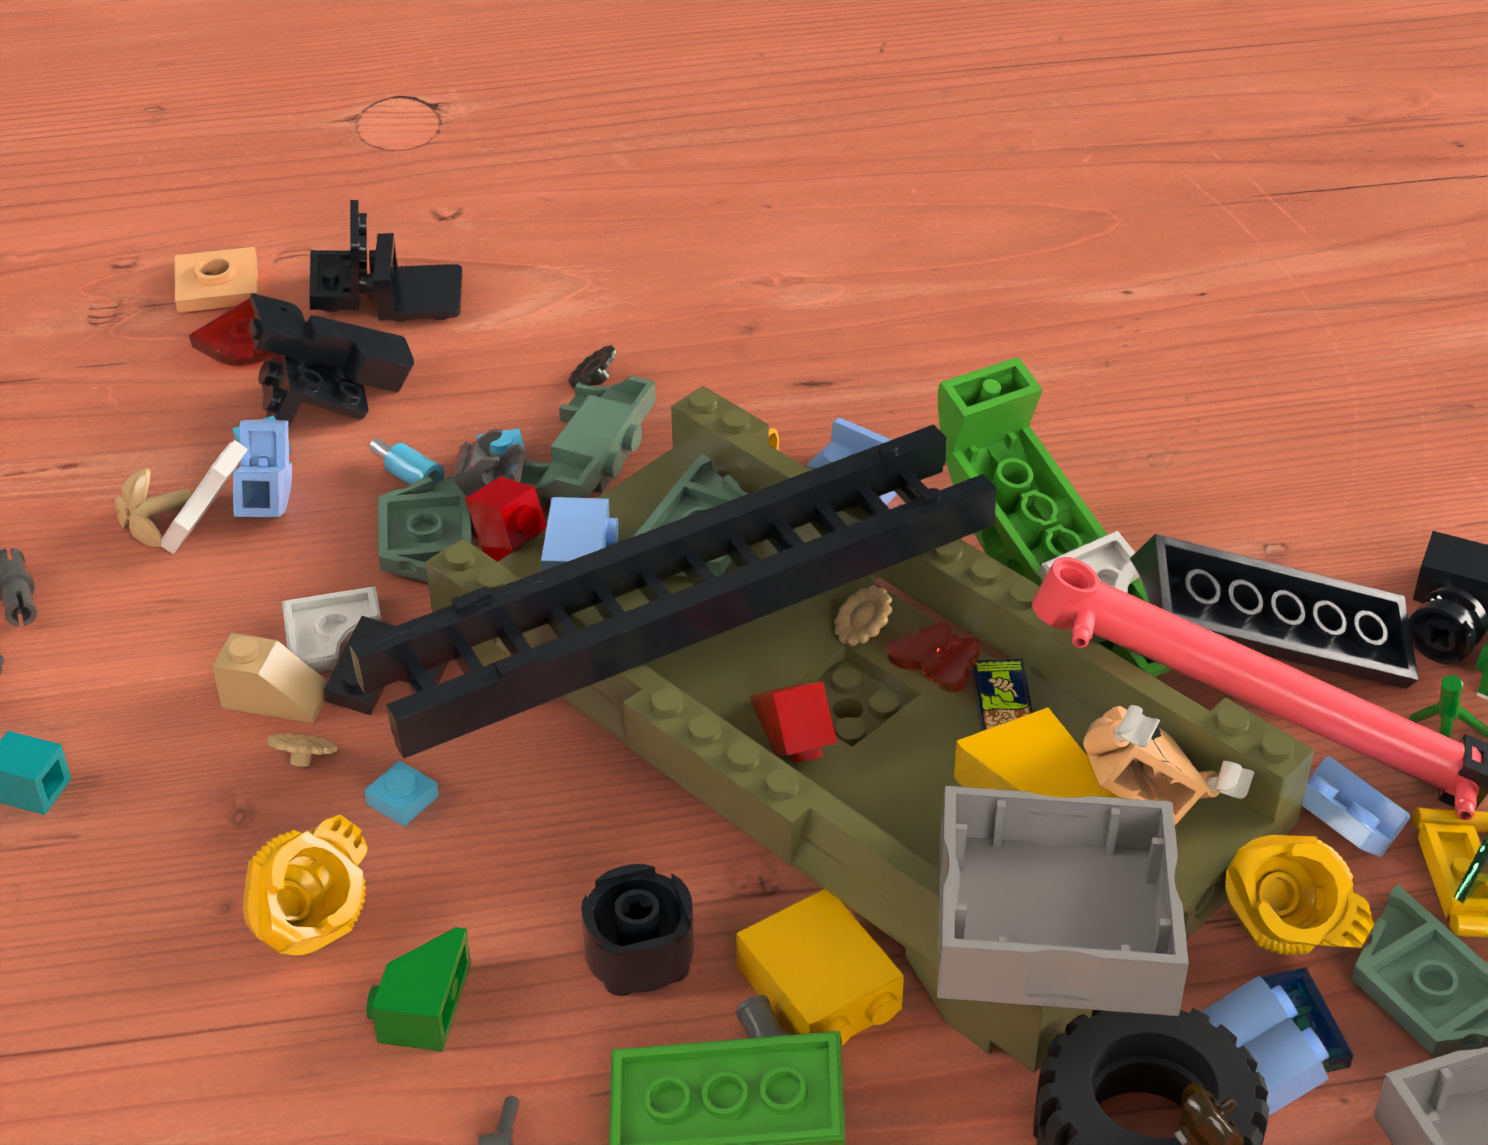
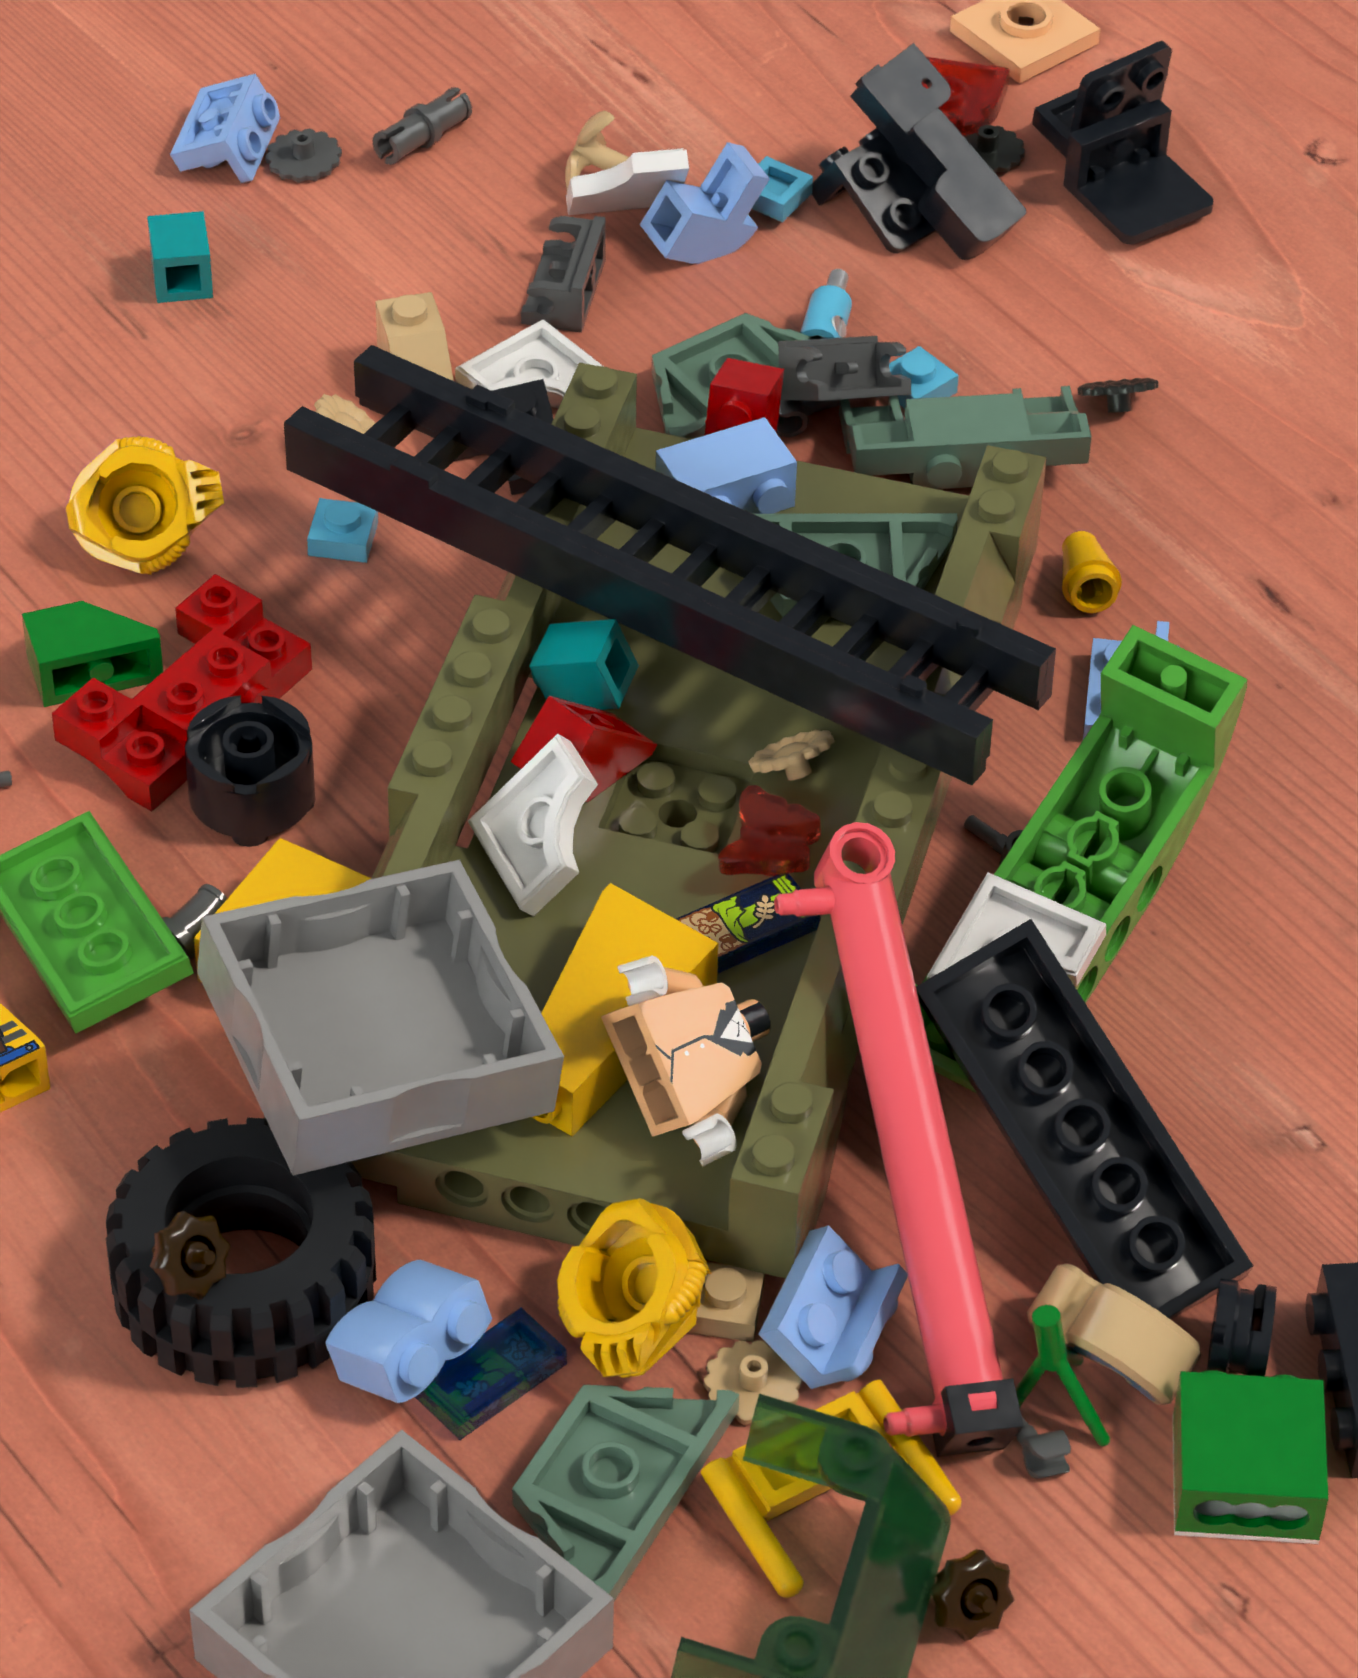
camera: 60 degrees right, 5 degrees up
(249, 570) = (567, 275): none -> dark grey hinge
(532, 931) = (145, 737): none -> red bracket
(718, 678) = (585, 663): none -> teal brick
(857, 764) = (532, 824): none -> white tile
(1373, 879) = (751, 1371): none -> tan piece
(1418, 679) = (1120, 1332): none -> tan animal

